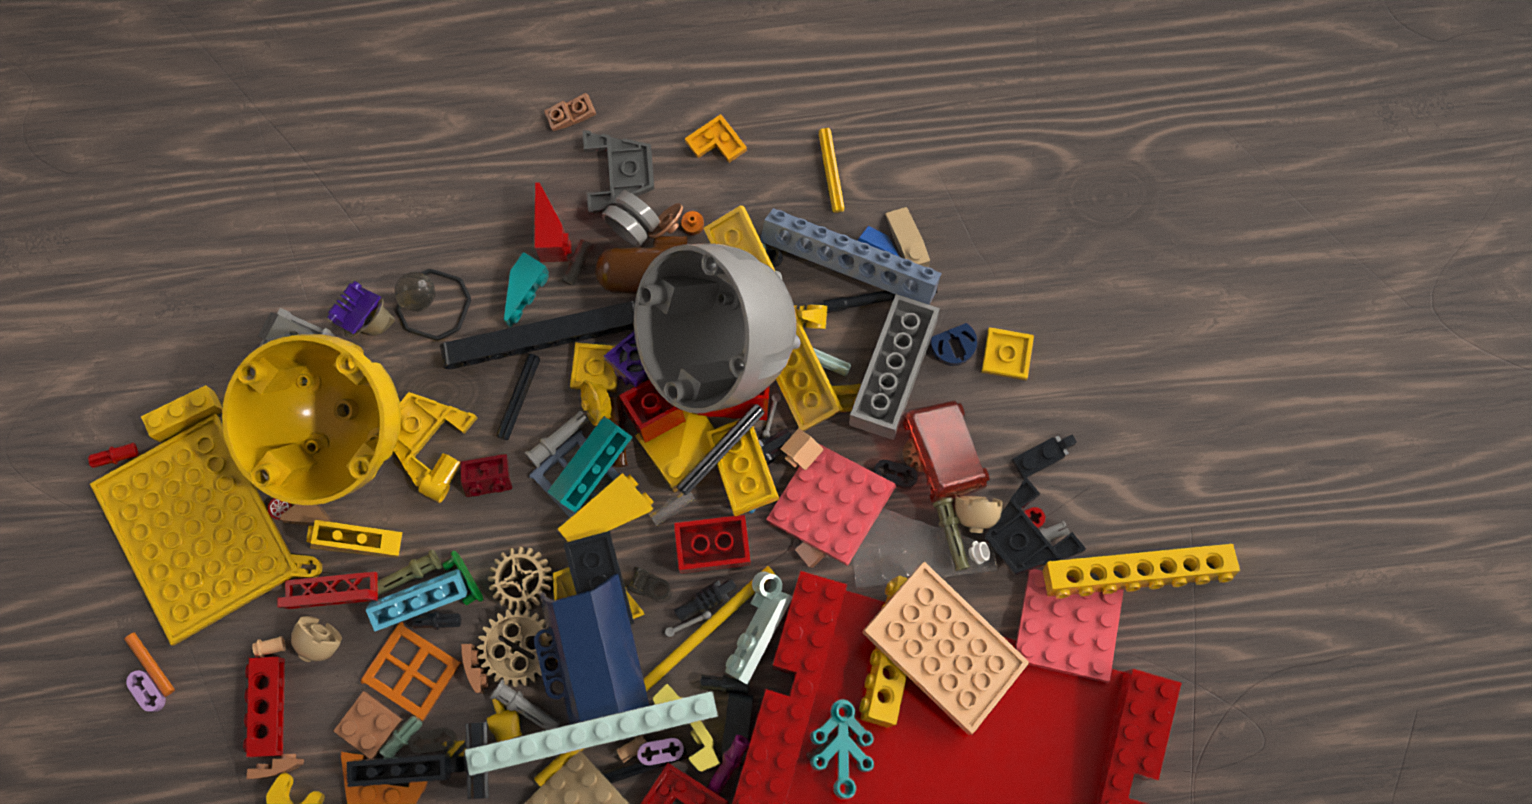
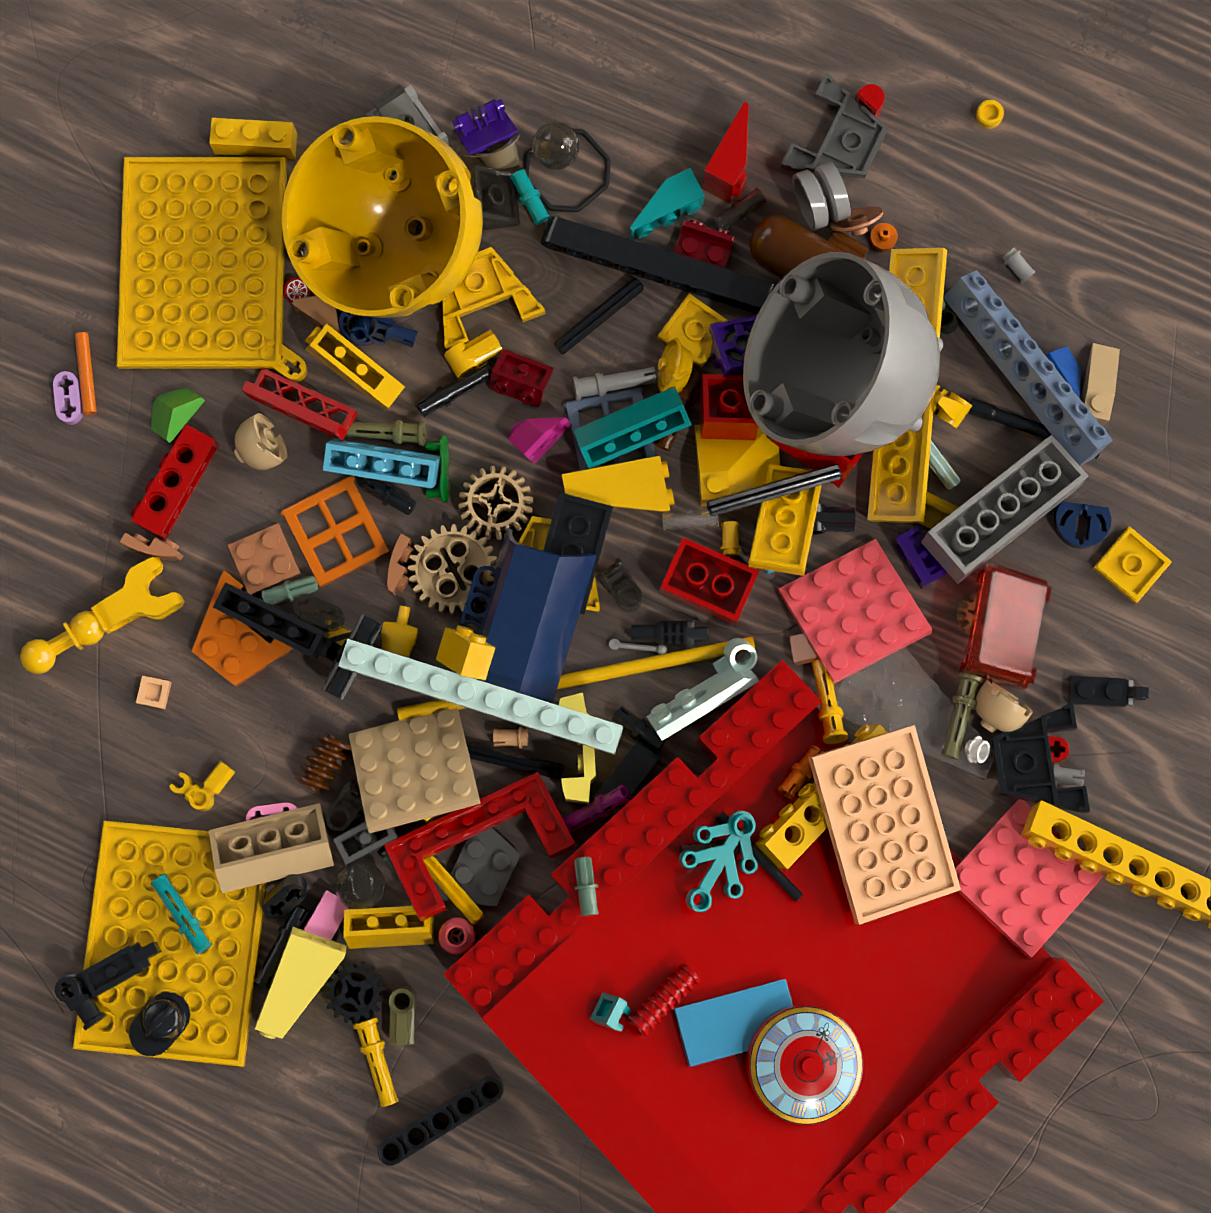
camera: 30 degrees right, 5 degrees up
(113, 455) = (162, 141): red axle -> none
(234, 653) = (173, 411): none -> bright green slope
(269, 646) = (210, 424): light nougat pin -> none
(353, 504) = (374, 330): none -> dark blue pin
(391, 352) = (496, 196): none -> clear smoke slope
(417, 339) = (529, 197): none -> teal pin
(441, 513) = (445, 395): none -> black pin
(516, 701) = (422, 622): light grey pin -> none
(523, 511) = (537, 435): none -> dark pink slope
(561, 706) = (465, 652): none -> yellow brick
(566, 300) = (704, 243): none -> dark red bracket
(570, 113) = (818, 46): nougat slope -> none
(626, 129) = (871, 97): none -> red brick
(661, 757) = (534, 762): lavender beam -> none
(710, 504) = (730, 539): none -> yellow pin
(716, 94) = (989, 114): none -> yellow tile
(716, 134) = (965, 157): light orange plate -> none
(776, 399) = (861, 471): light grey hinge -> none
(800, 188) = (1018, 264): none -> light grey pin
(801, 449) = (856, 538): light nougat brick -> none
(831, 170) = (1063, 264): yellow axle -> none
(853, 438) = (917, 558): none -> dark purple hinge
(858, 591) = (827, 714): none -> yellow pin
(862, 647) = (800, 774): none -> orange pin
(880, 730) = (773, 871): none -> black bar
(900, 469) = (944, 616): black beam -> none

